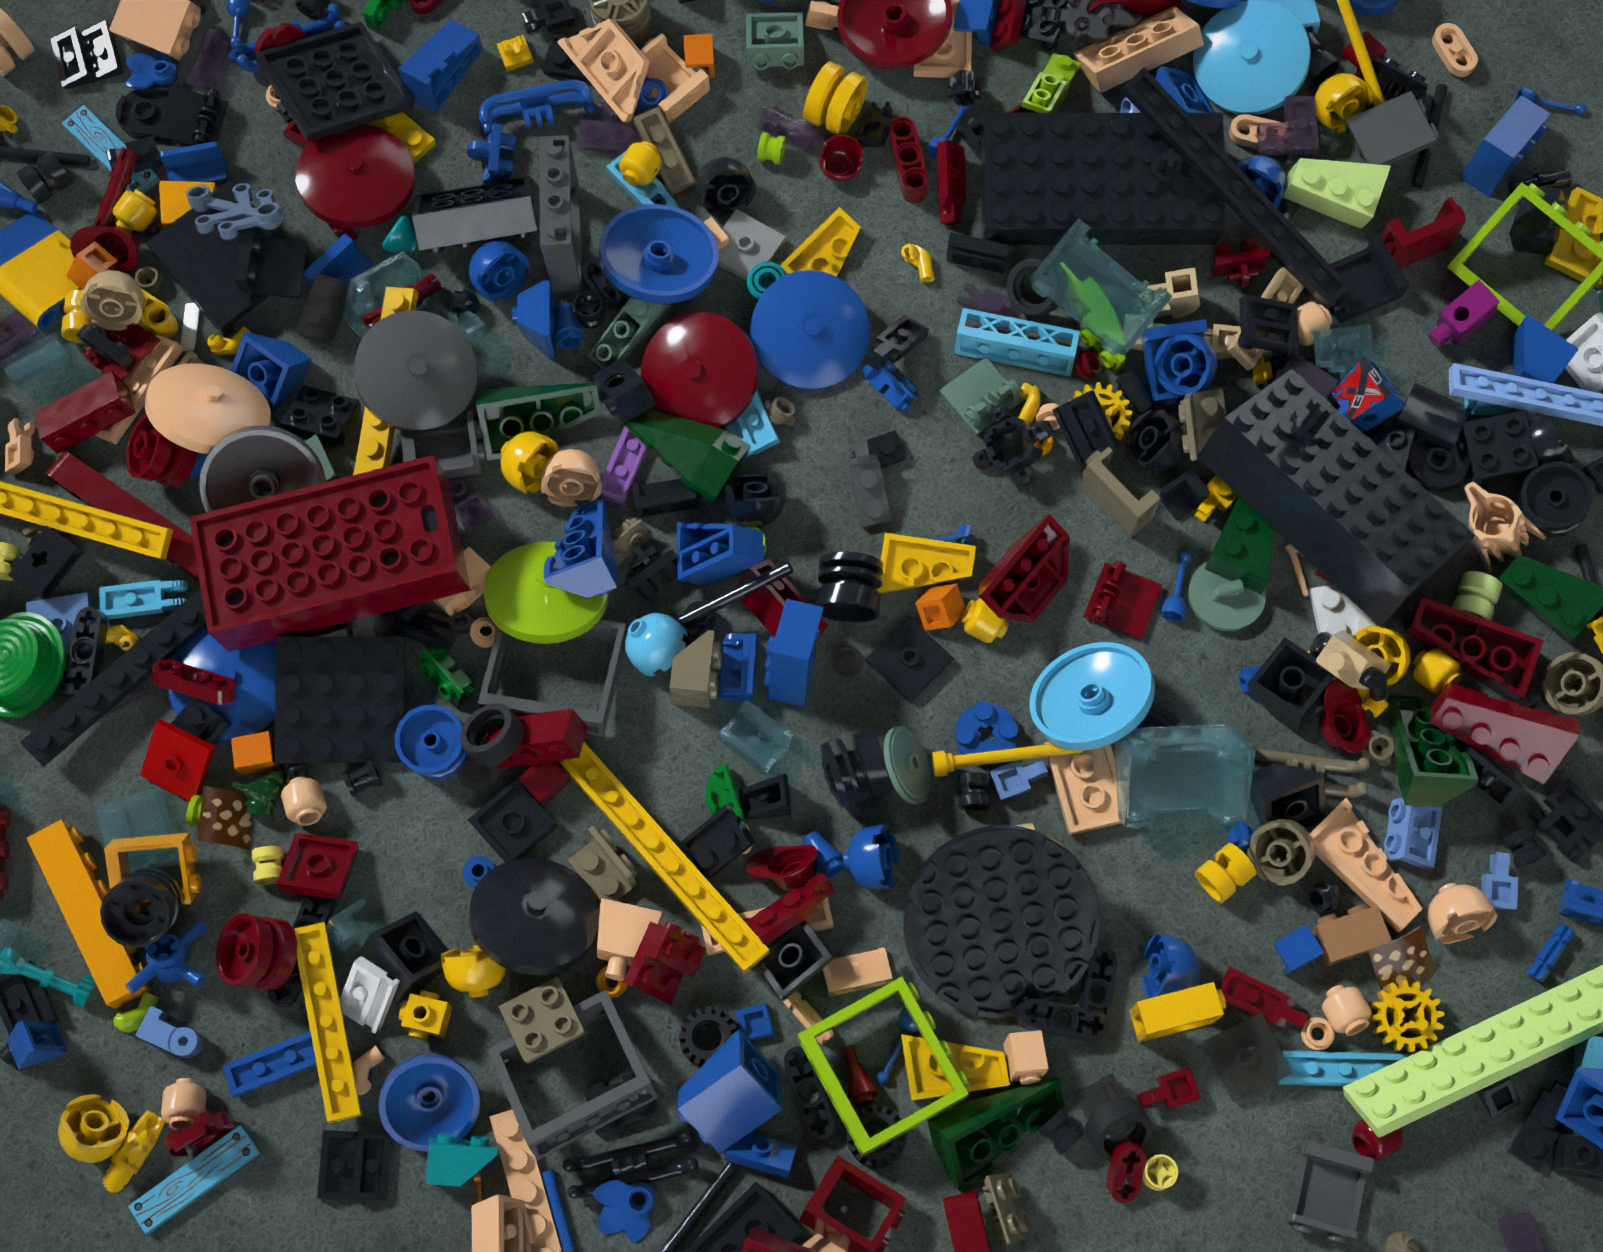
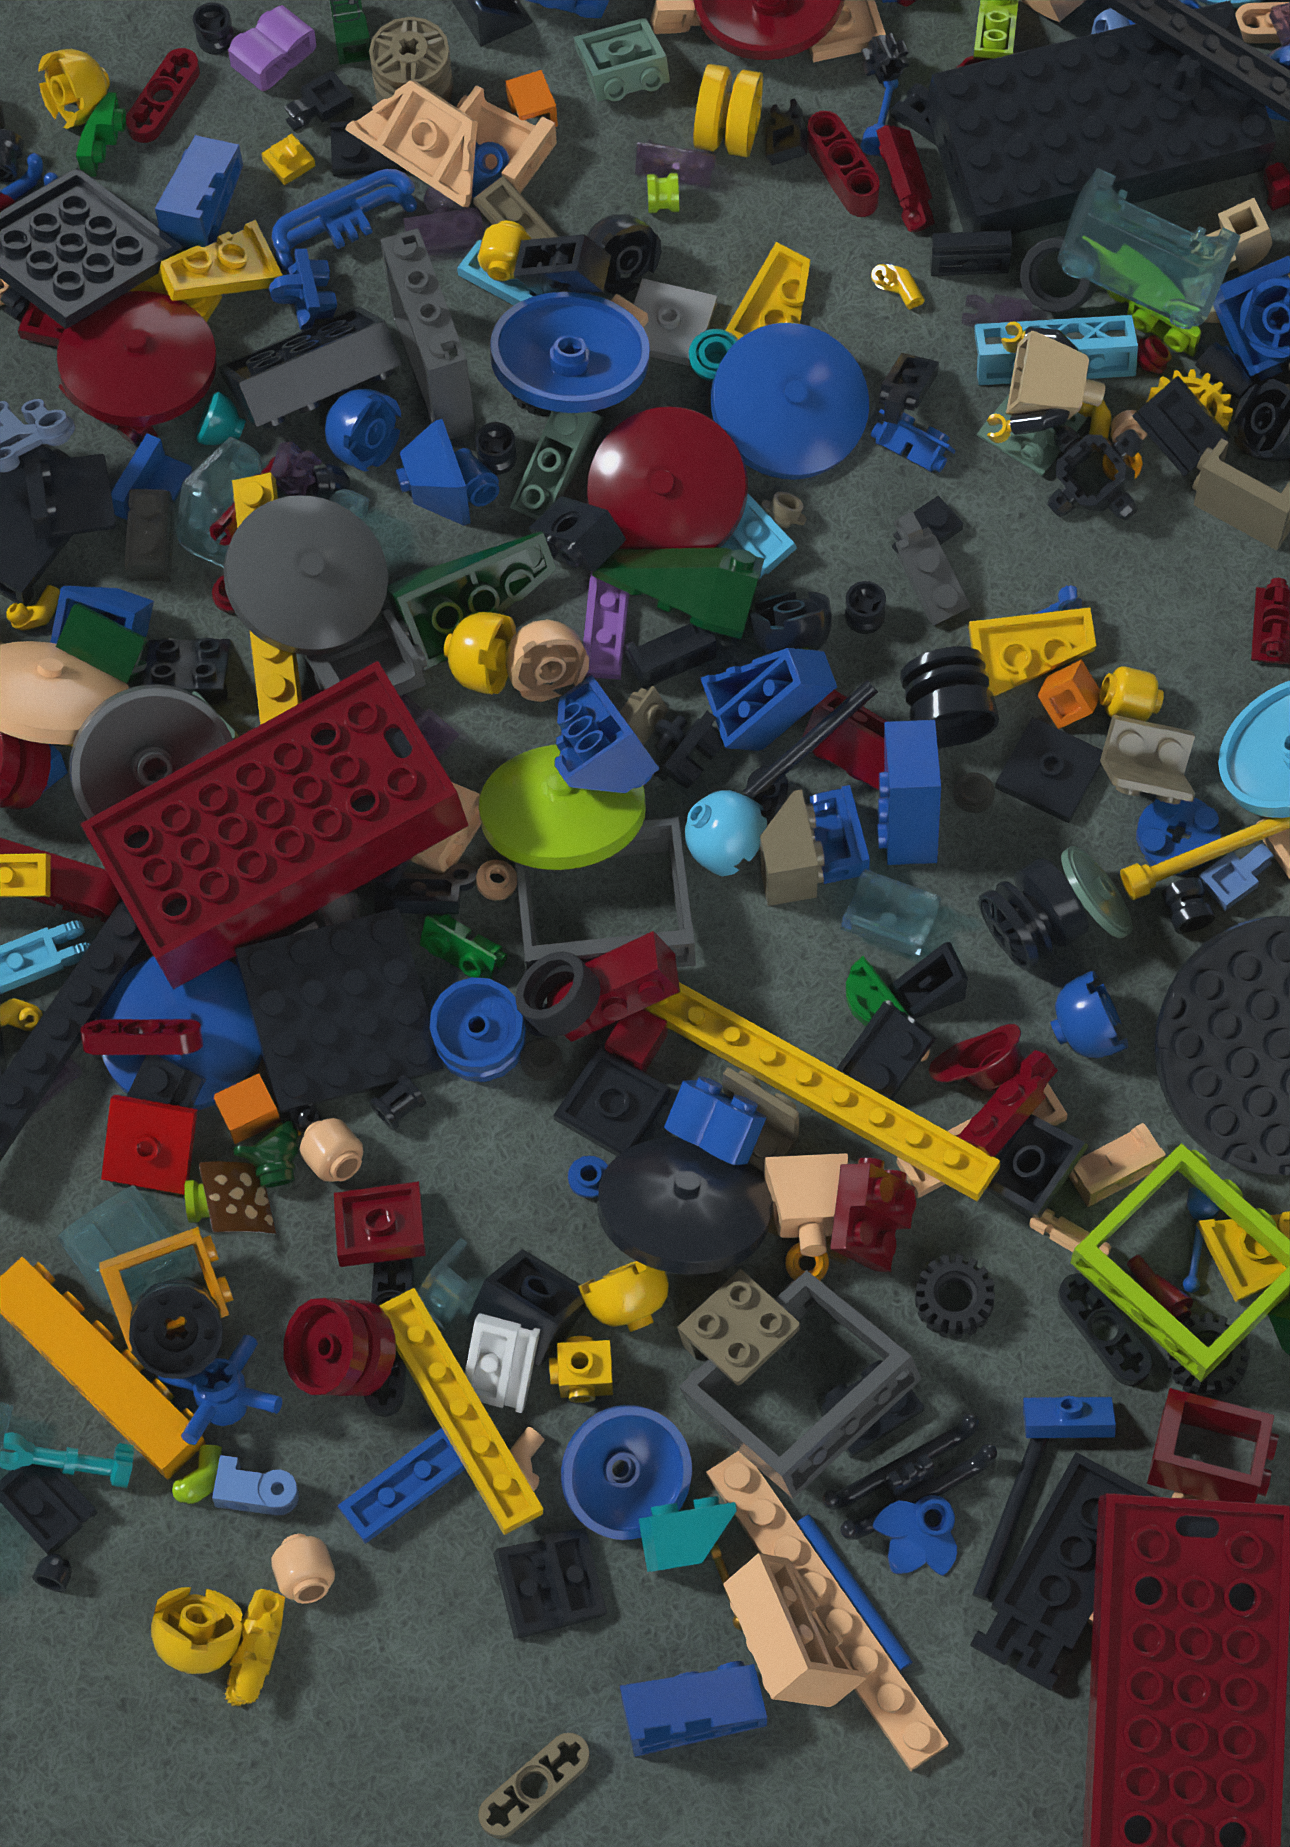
camera: 15 degrees left, 5 degrees down
(35, 1043) = (79, 1547): blue slope -> none
(194, 1179) = (346, 1660): medium azure tile -> none
(204, 1132) = (340, 1596): dark red plate -> none
(259, 384) = (103, 644): none -> dark green panel
(268, 864) = (312, 1242): light yellow wheel -> none
(439, 287) = (294, 468): none -> clear purple tile
(442, 123) = (227, 266): none -> yellow wing
(576, 860) = (715, 1121): none -> blue brick
(598, 282) = (506, 411): black plate -> none
(674, 186) = (562, 265): none -> black brick
(731, 1093) = (1009, 1352): blue slope -> none
(755, 1022) = (1006, 1263): blue tile -> none
(813, 494) = (868, 599): none -> black wheel
(828, 859) = (1033, 1033): blue cone -> none
(838, 151) = (757, 172): dark red hair -> none
(978, 675) = (1148, 759): none -> dark tan bracket
(995, 368) = (1045, 382): none -> tan torso
(1028, 573) = (1168, 620): dark red wedge -> none

